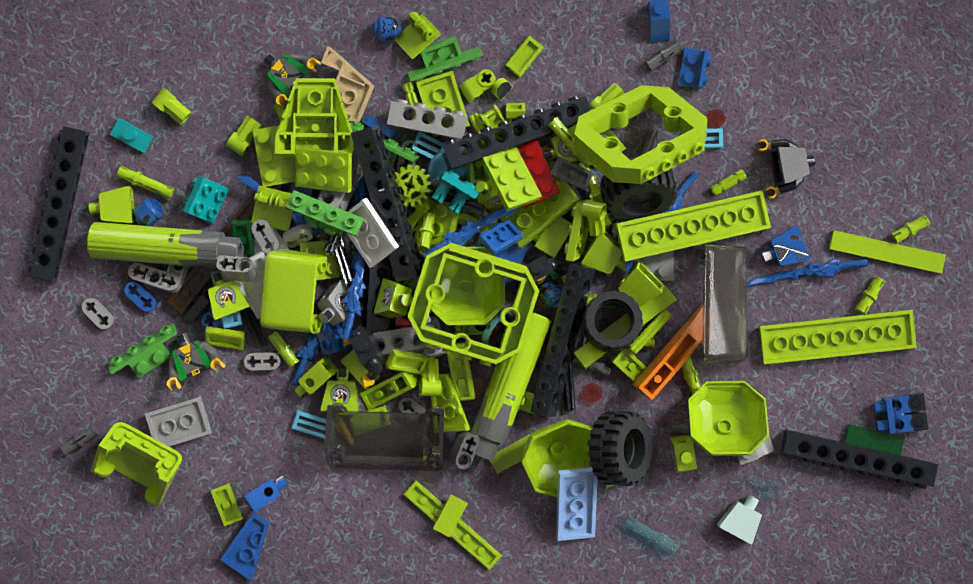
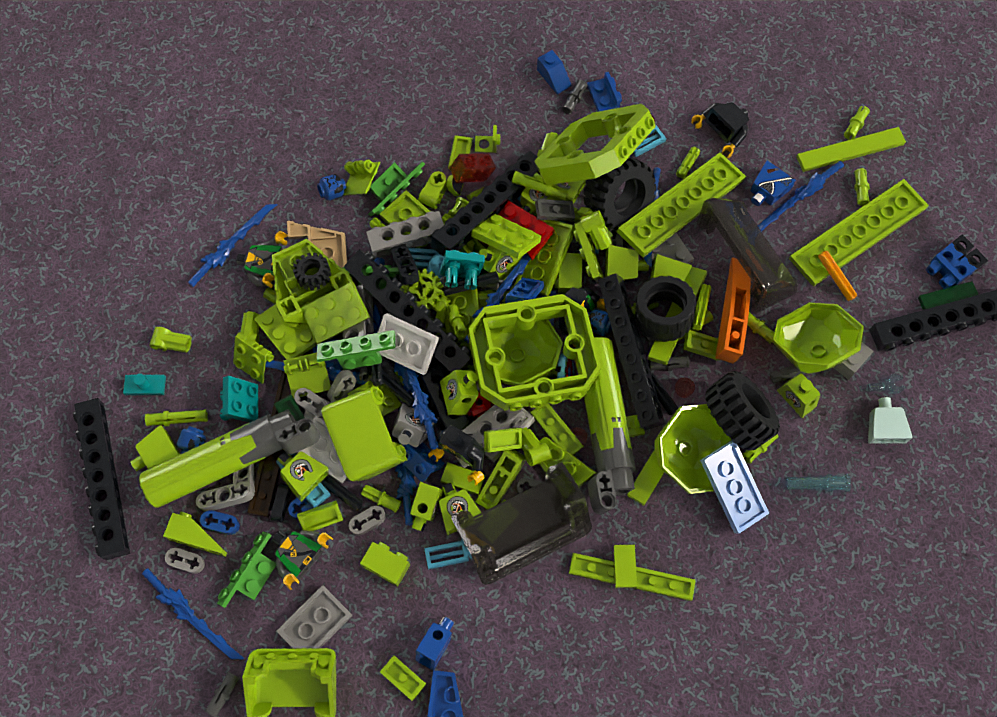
camera: 30 degrees left, 20 degrees down
(78, 356) = (184, 612): none -> blue sword
(112, 294) = (186, 531): none -> lime slope
(234, 170) = (251, 357): none -> lime hinge
(257, 41) = (226, 246): none -> blue sword
(258, 406) = (385, 563): none -> lime brick
(326, 131) = (312, 280): none -> black tyre
(411, 163) = (403, 270): none -> black beam
(524, 84) = (472, 167): none -> clear red brick
(561, 63) = (493, 142): none -> lime bracket
(787, 367) = (837, 275): none -> light orange axle

